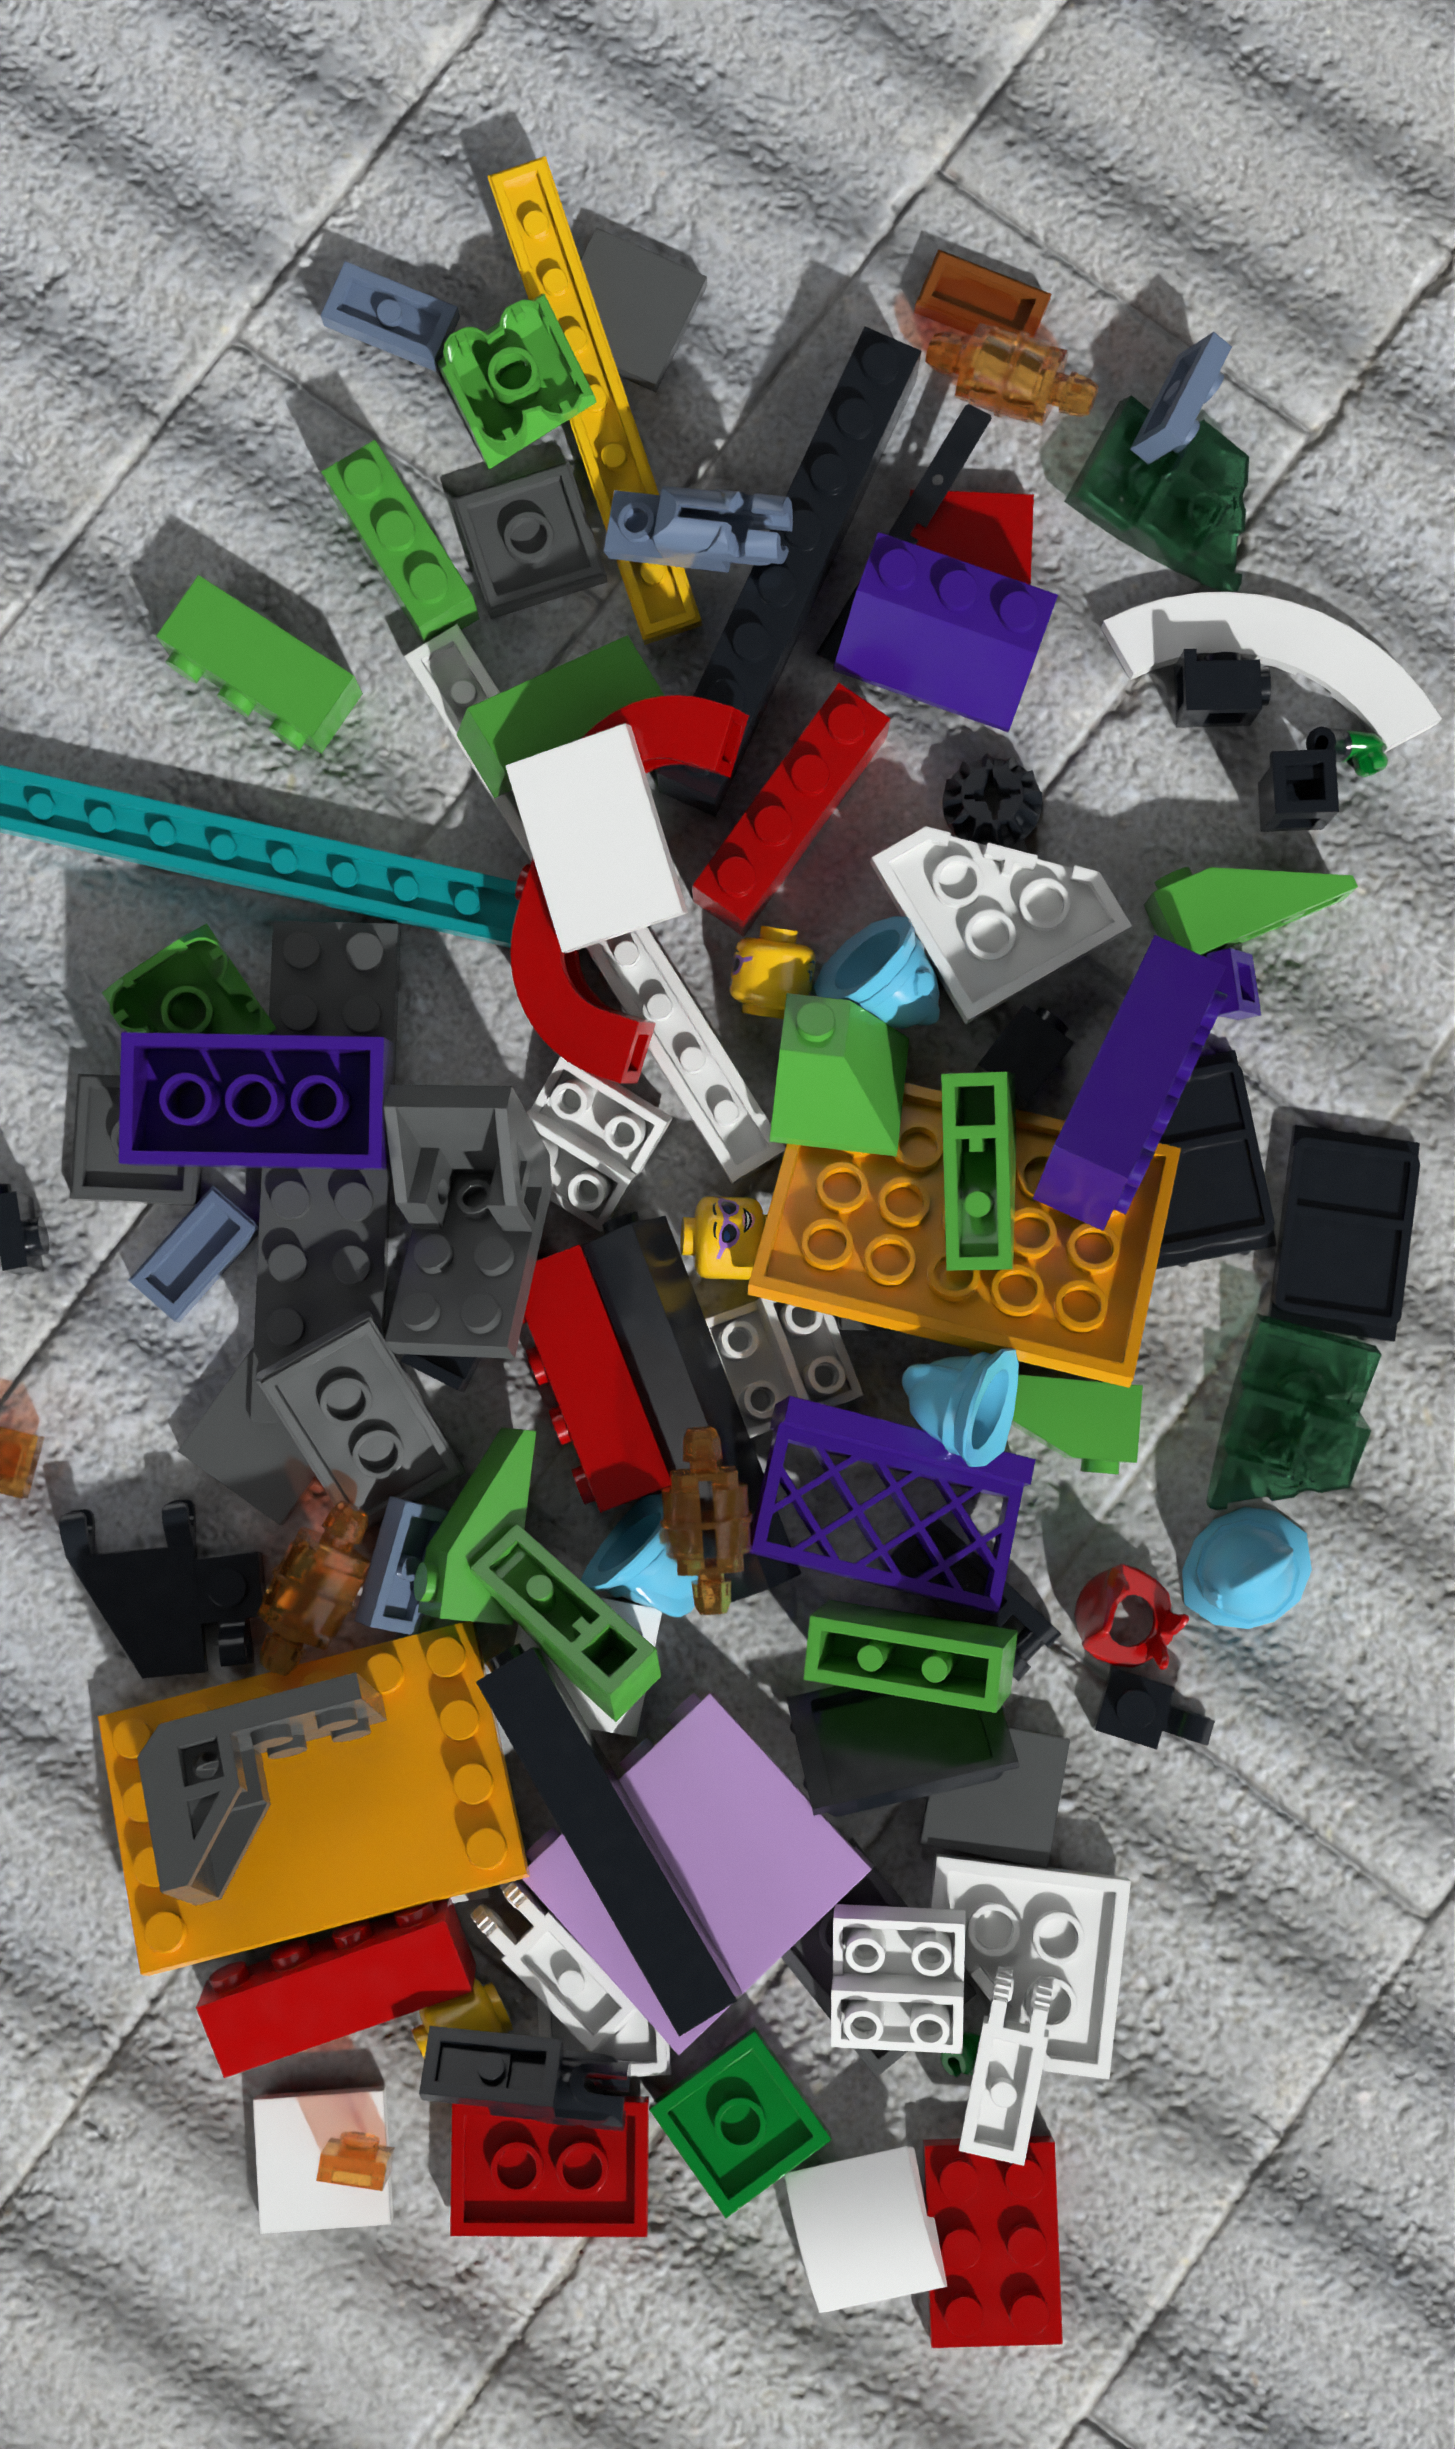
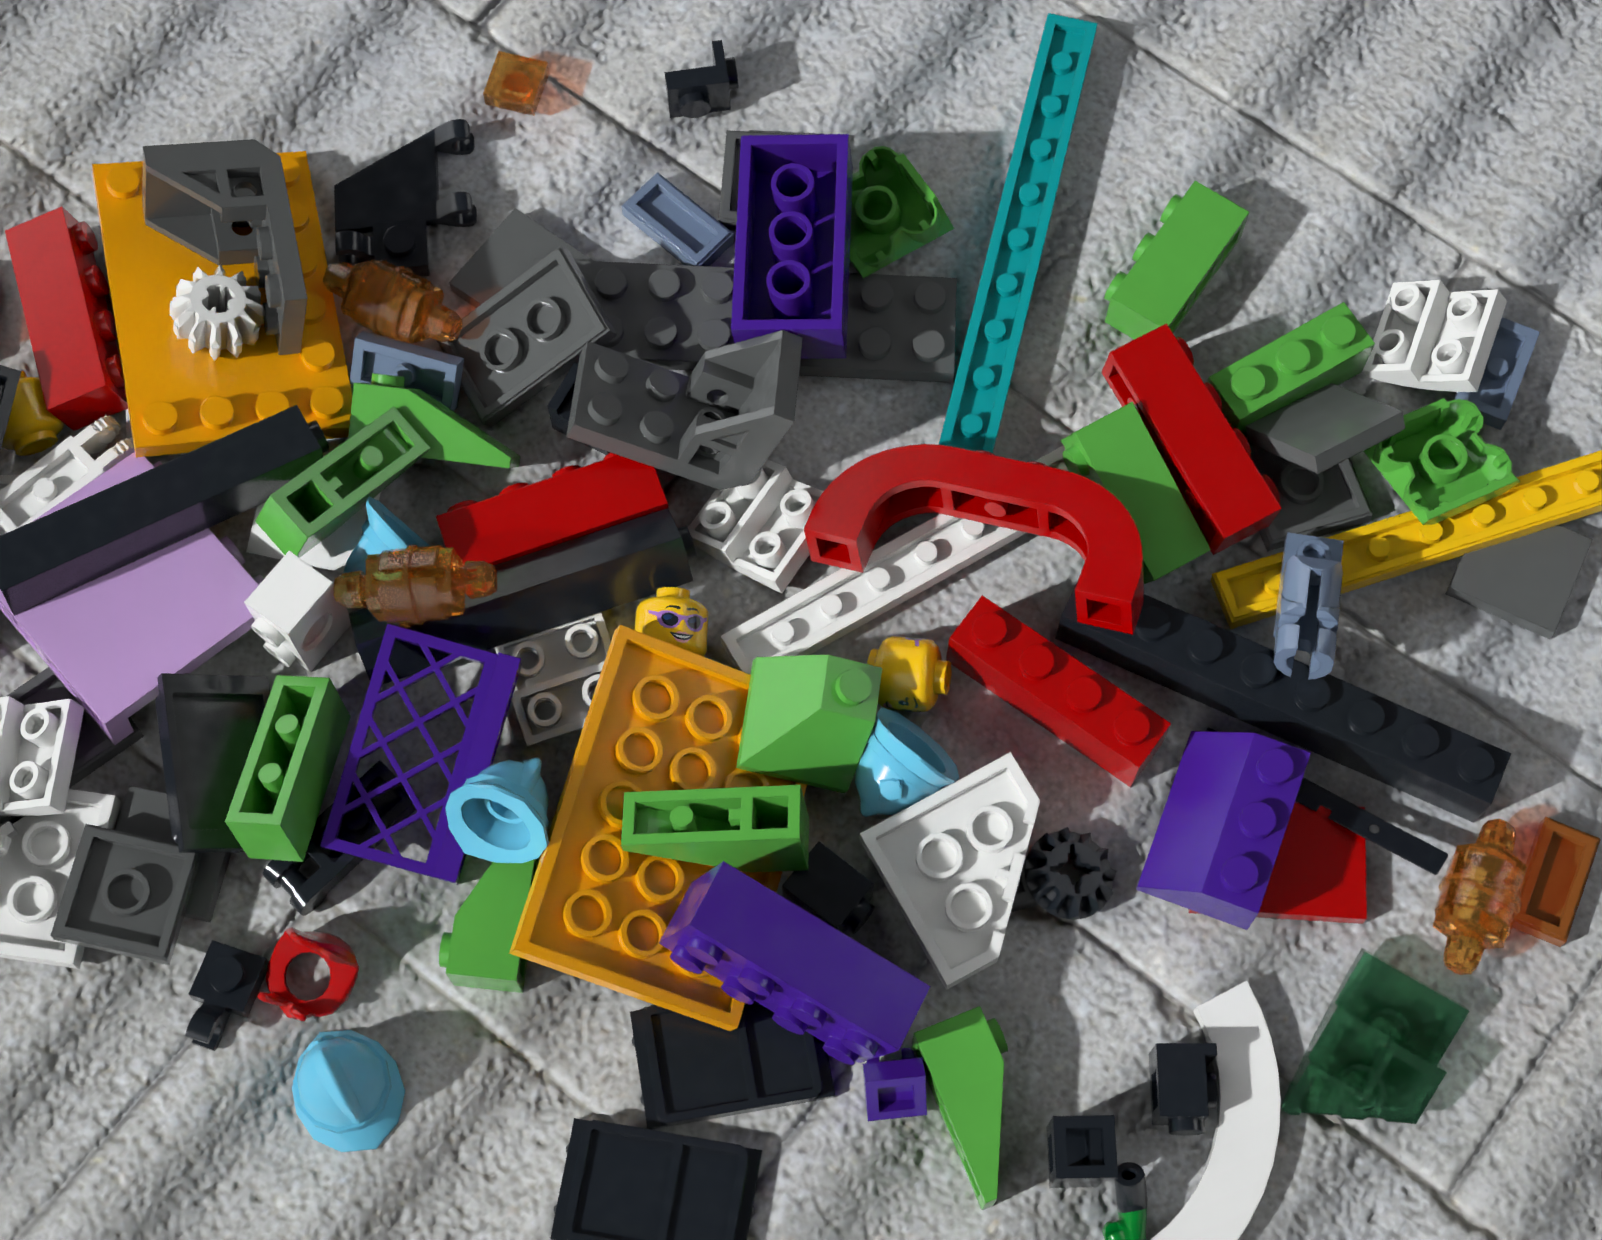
camera: 90 degrees right, 15 degrees down
(333, 1816) = (237, 316): none -> white gear
(348, 376) = (1435, 336): none -> white slope
(479, 500) = (1325, 428): none -> dark grey tile
(492, 648) = (1193, 437): none -> red brick
(596, 838) = (1015, 499): white tile -> none
(725, 1665) = (297, 613): none -> white brick
(1054, 1829) = (126, 895): none -> dark grey tile
(1188, 386) = (1486, 1069): sand blue plate -> none
(1292, 1414) = (487, 1136): clear green slope -> none

